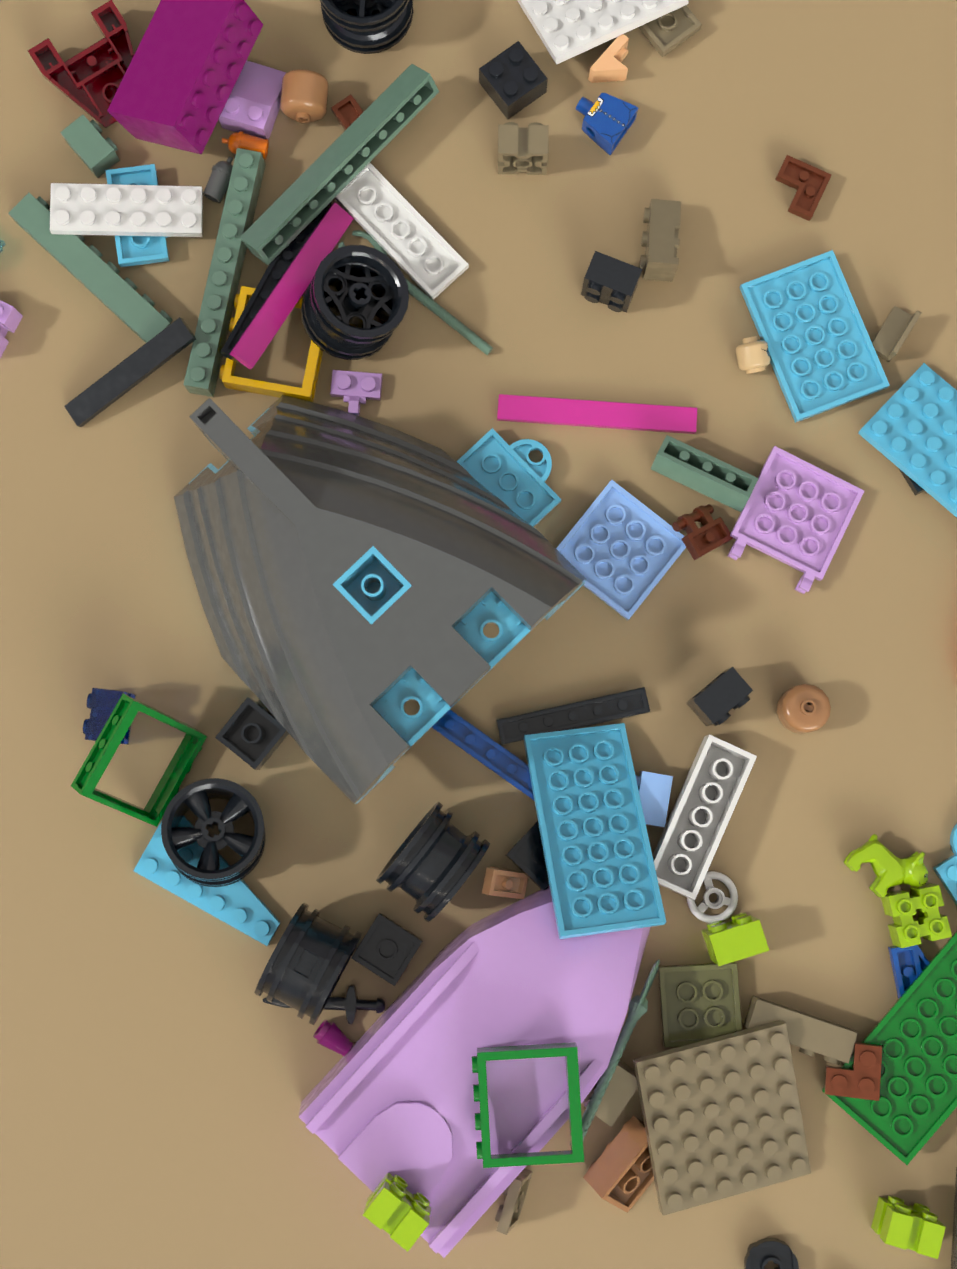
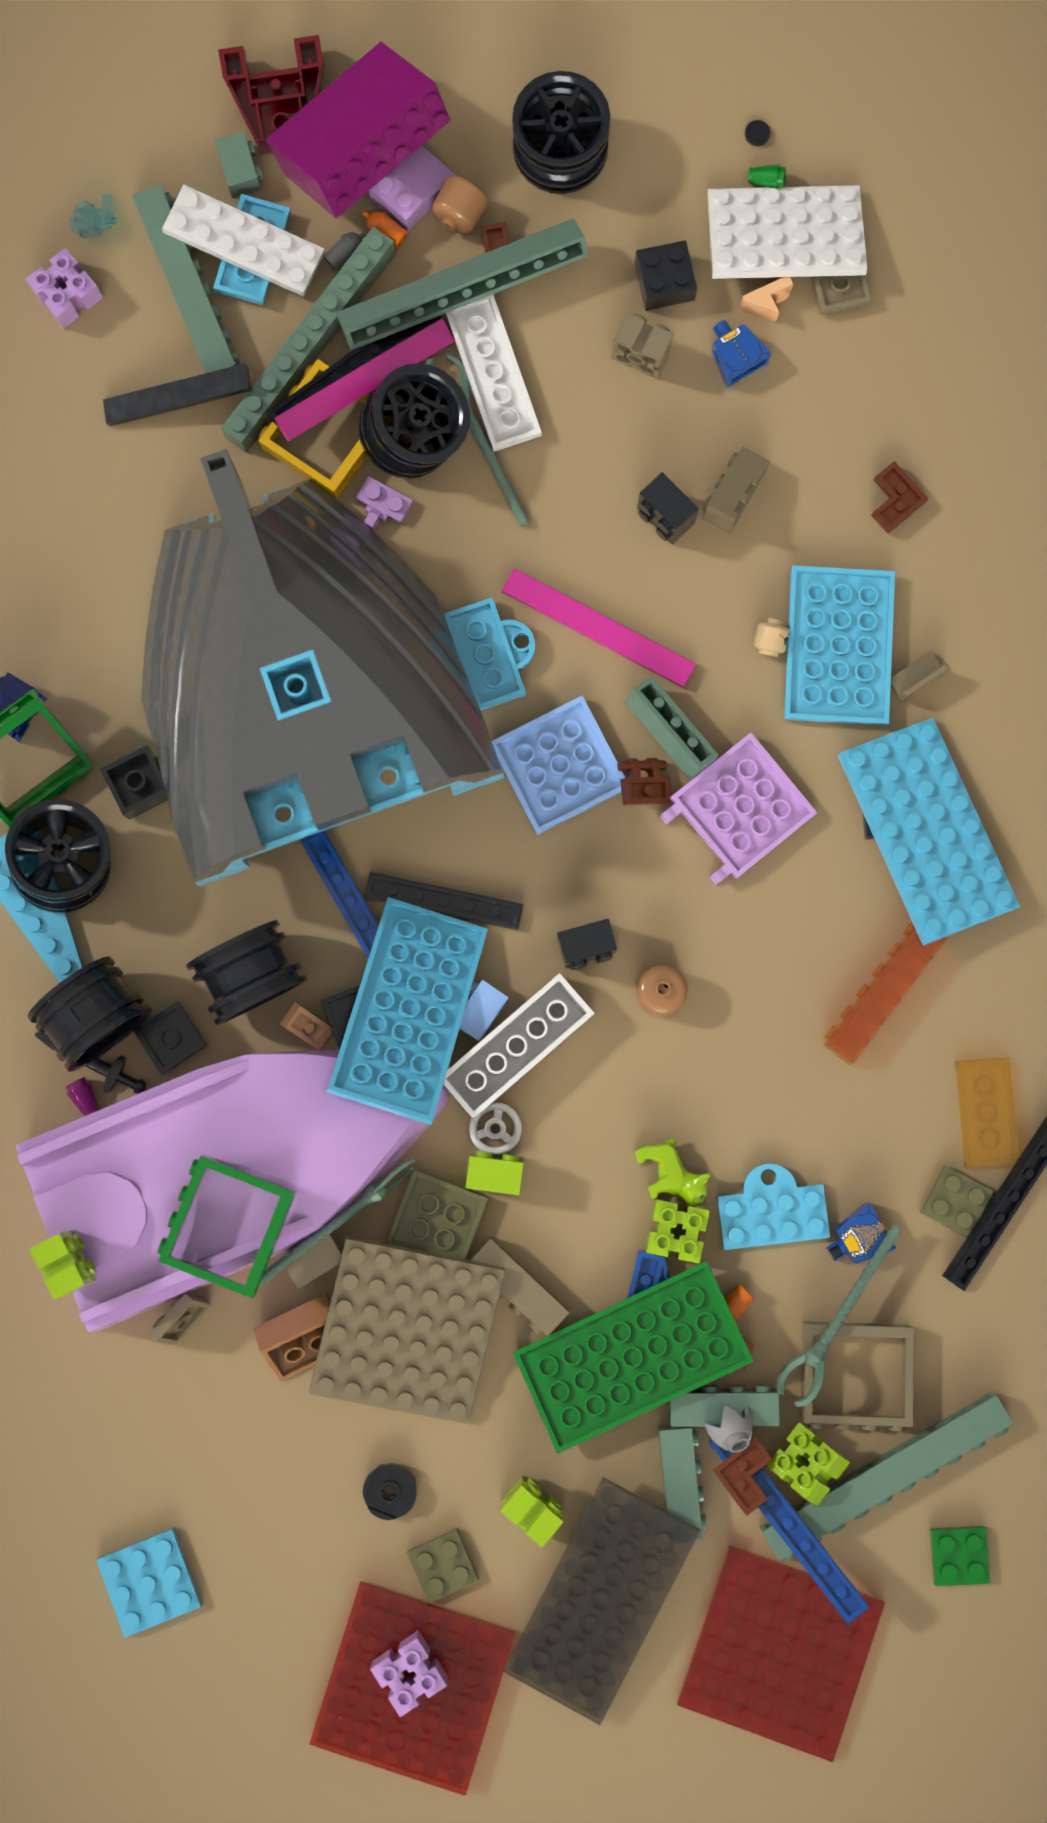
camera: 25 degrees right, 0 degrees up
(862, 1080) = (551, 1358): copper plate -> none

